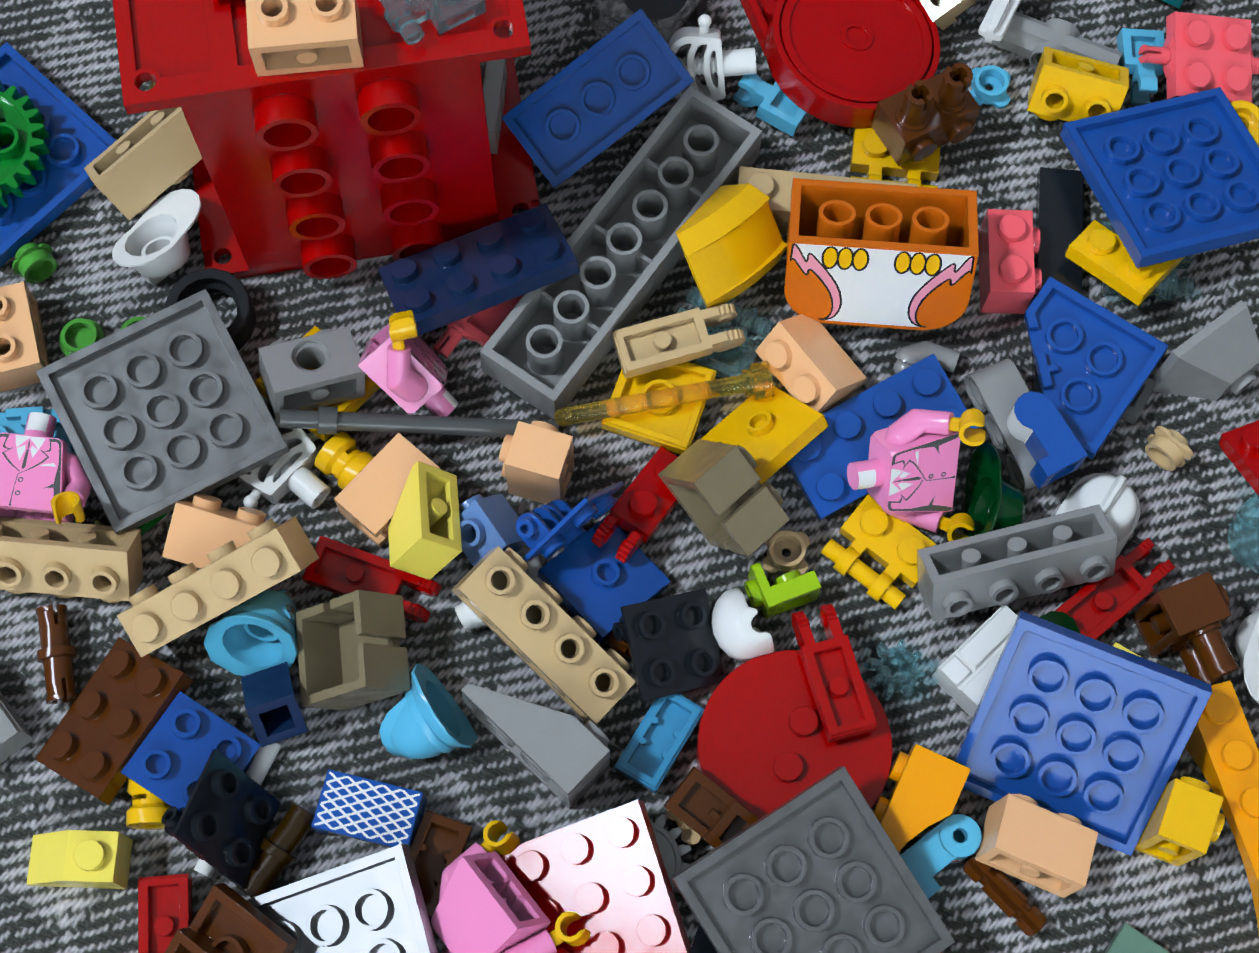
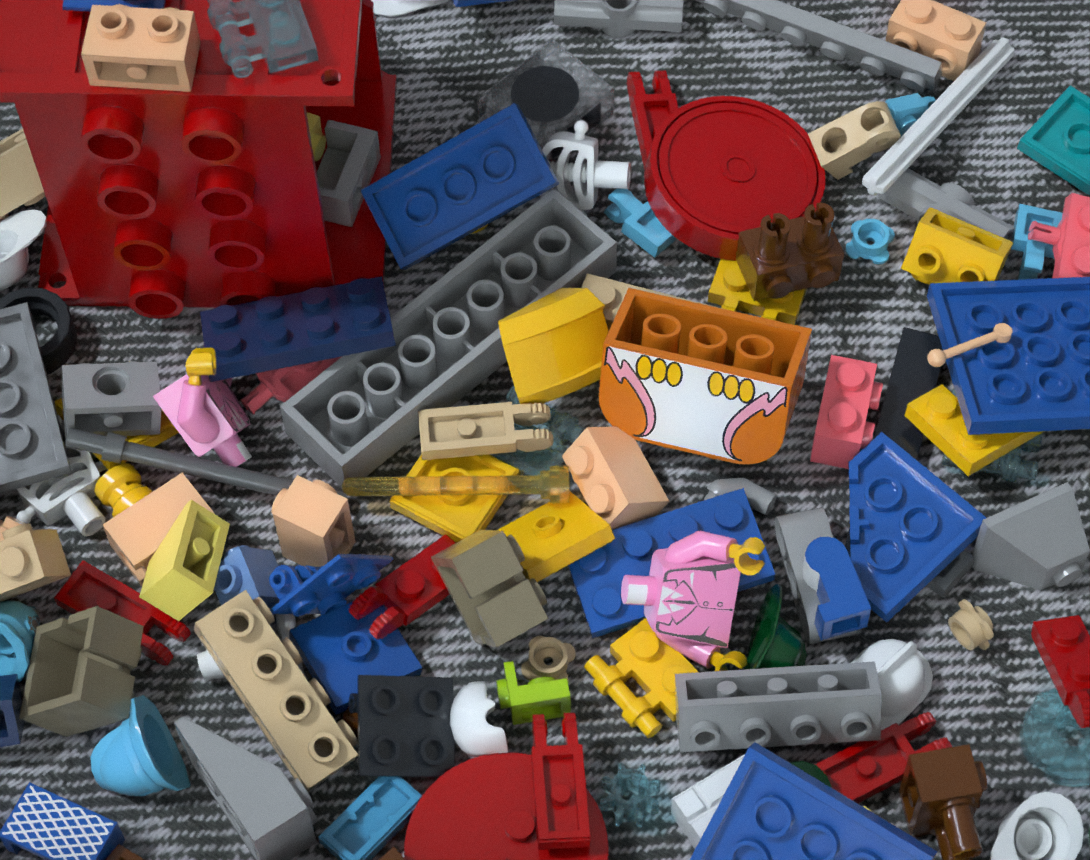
camera: 15 degrees right, 10 degrees down
(1144, 162) = (1001, 333): none -> light nougat hinge

